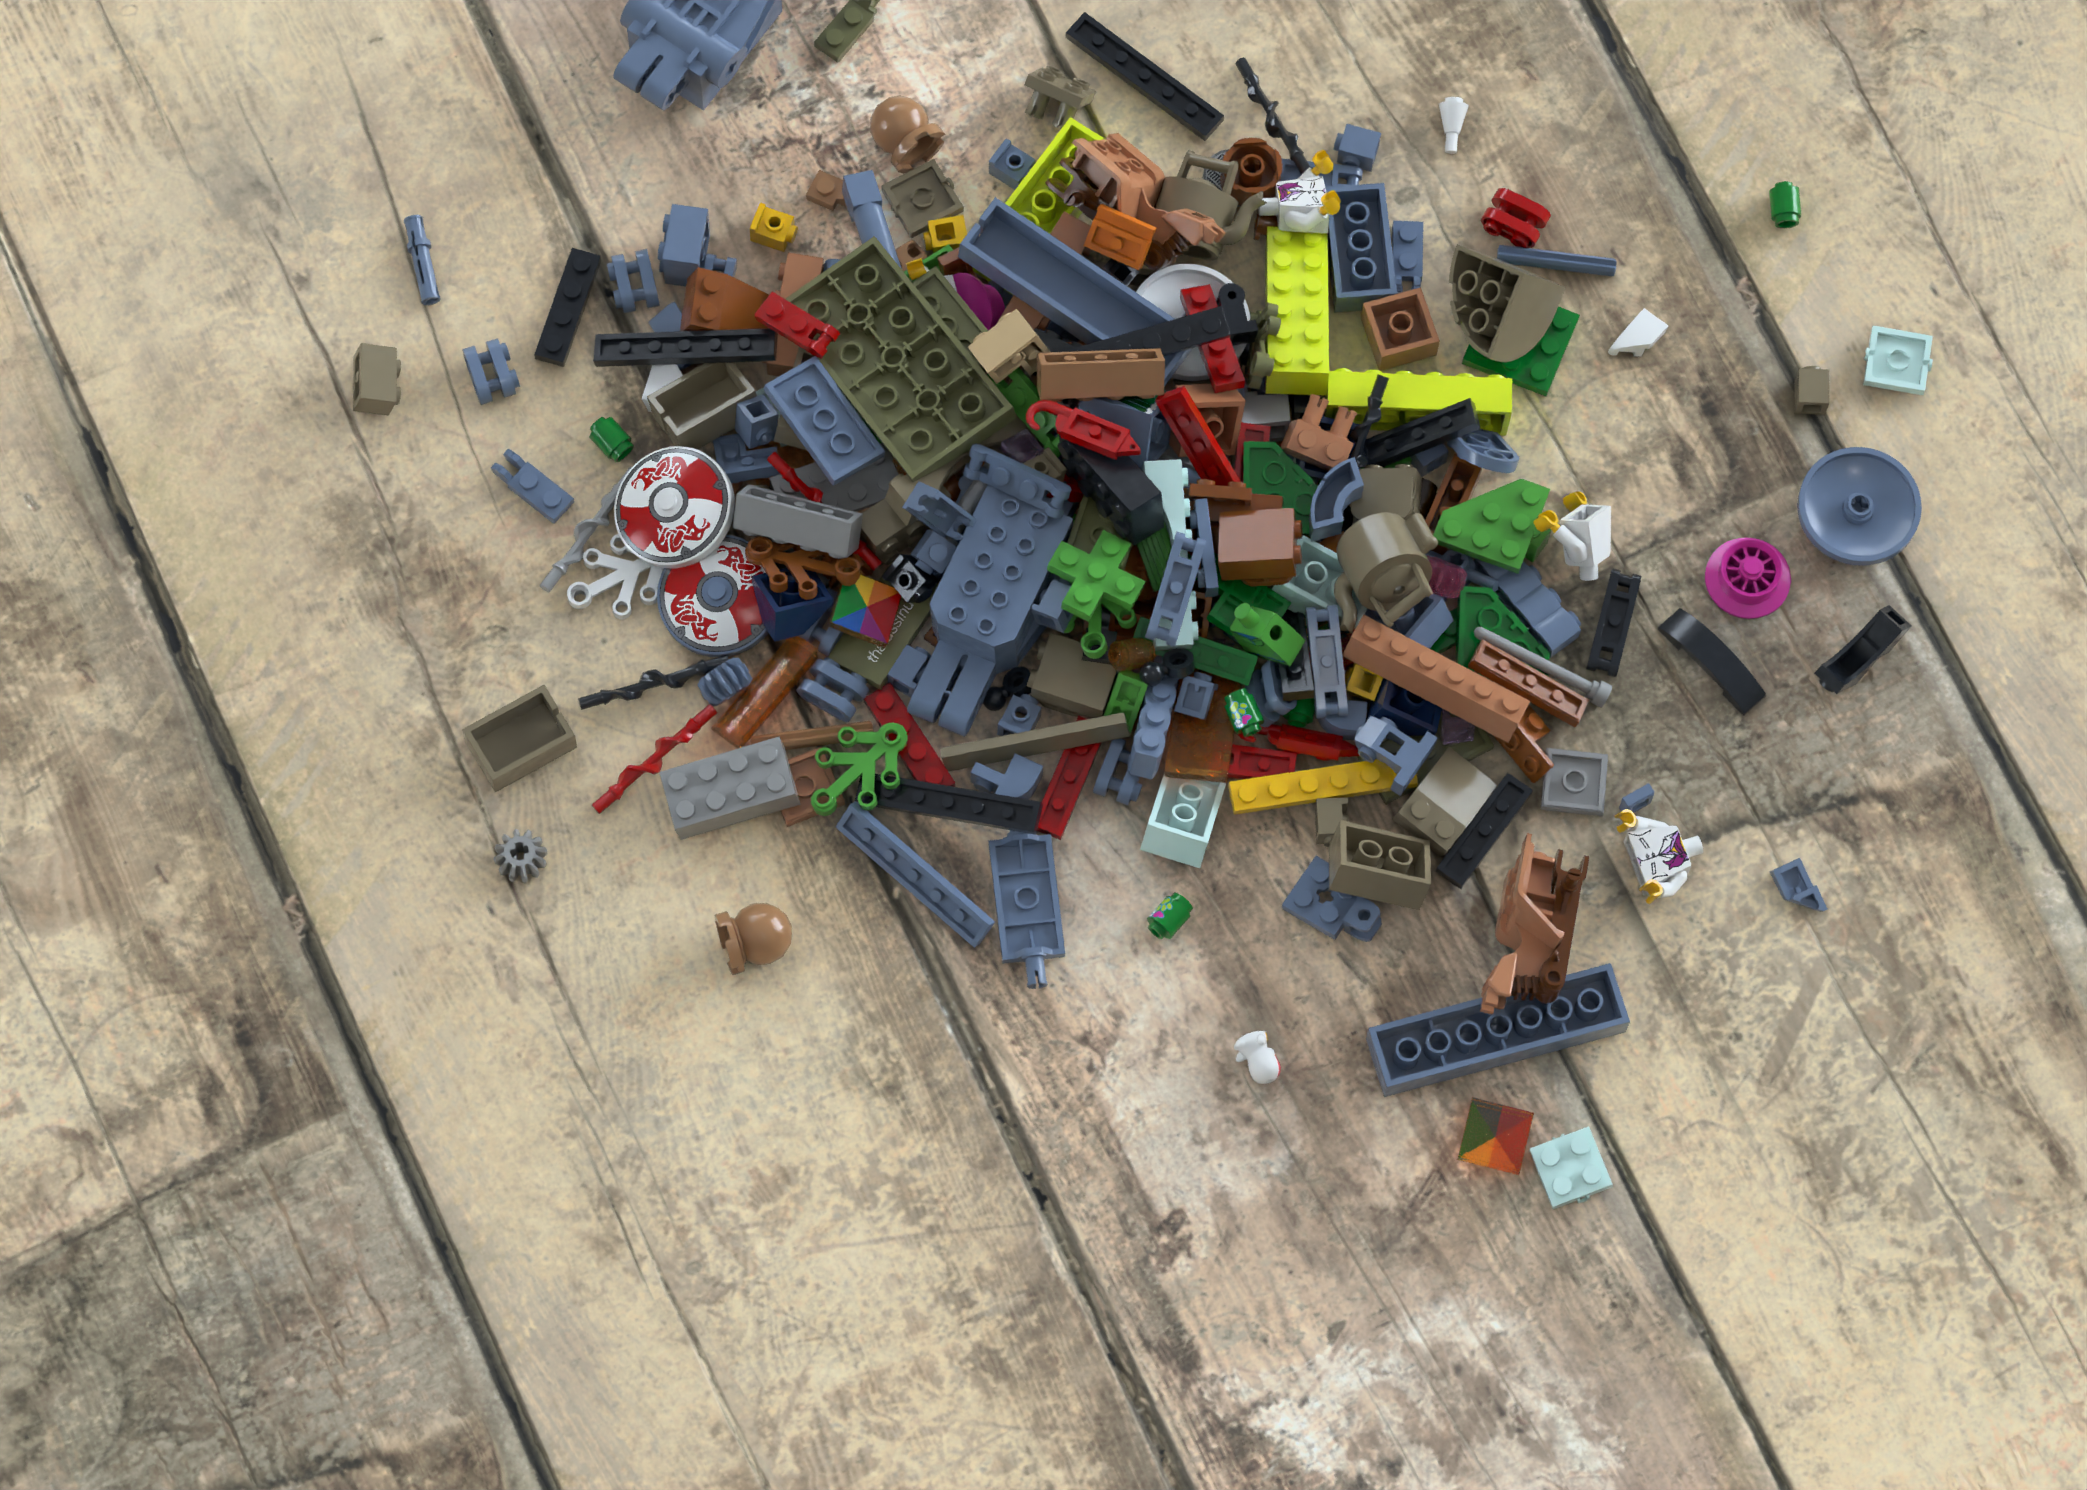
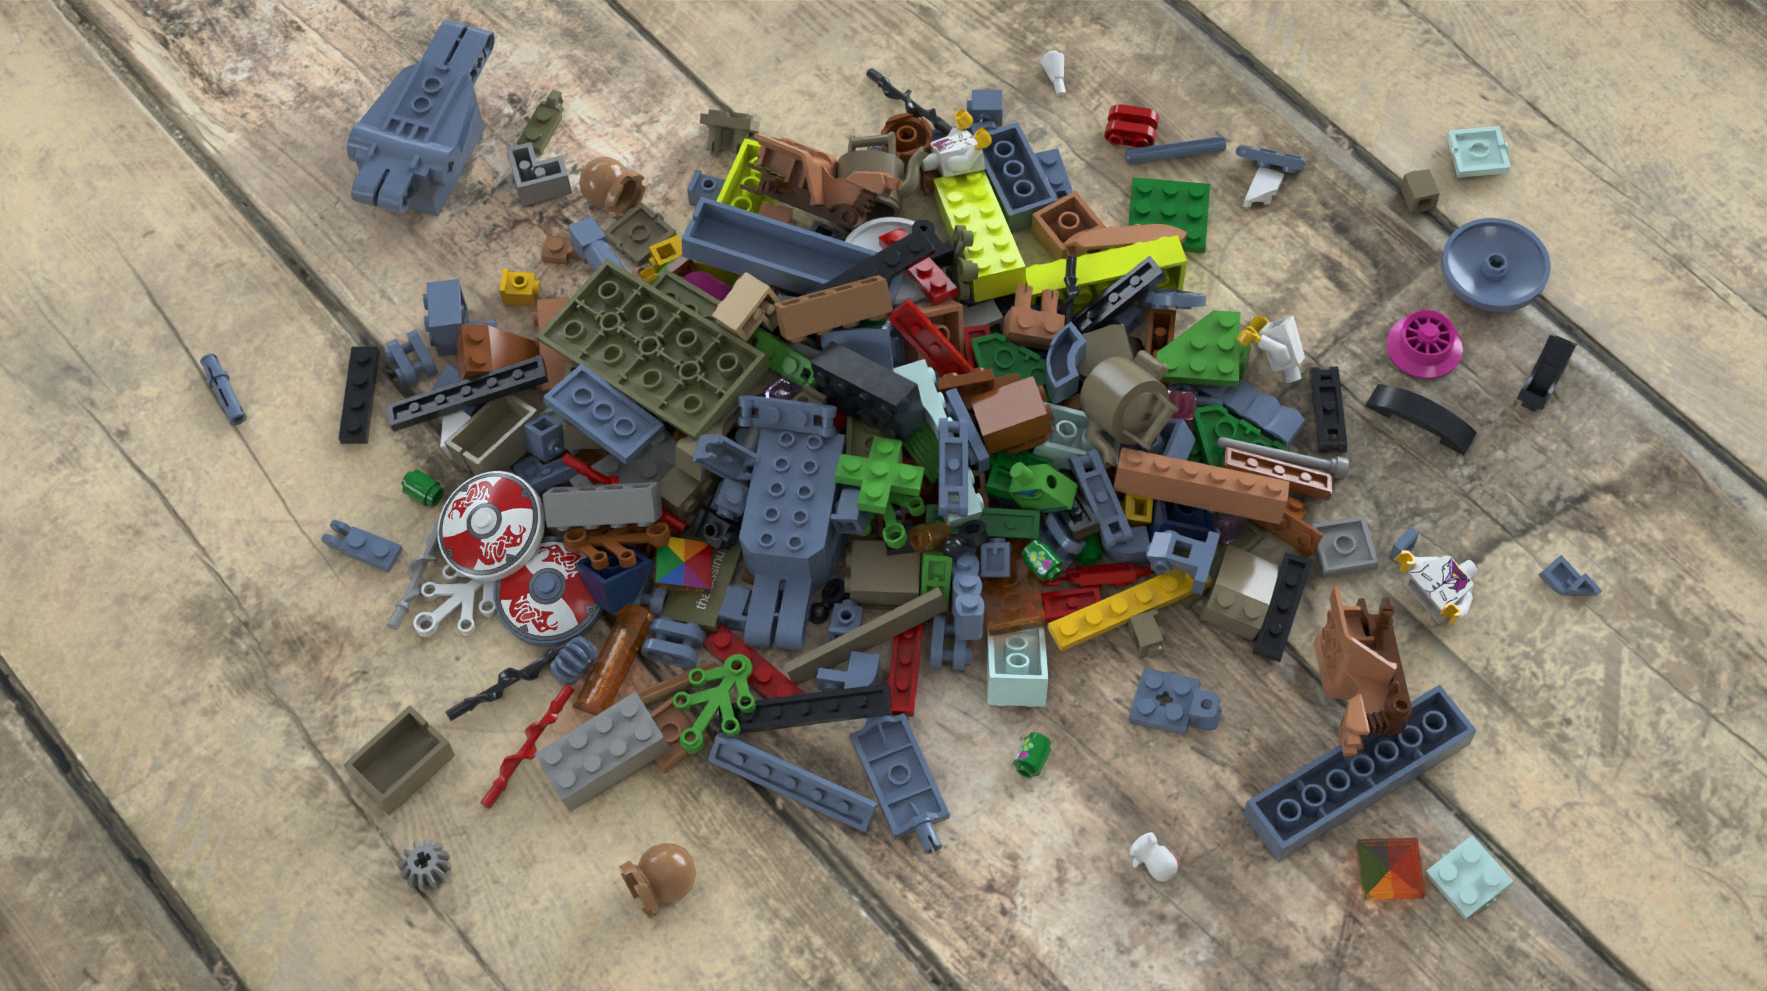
camera: 10 degrees left, 10 degrees down
(375, 379) = (201, 492): dark tan brick -> none
(505, 379) = (307, 448): sand blue brick -> none
(796, 325) = (558, 344): red plate -> none
(823, 99) = (537, 179): none -> light grey brick
(1086, 429) = (836, 352): red plate -> none
(1120, 236) = (815, 203): orange plate -> none
(1144, 76) = (796, 100): black plate -> none
(1379, 865) = (1205, 657): dark tan brick -> none
(1423, 358) = (1102, 239): none -> nougat brick
(1500, 304) = (1146, 182): dark tan brick -> none
(1659, 301) = (1266, 157): none -> sand blue hinge
(1785, 204) = (1342, 63): green brick -> none

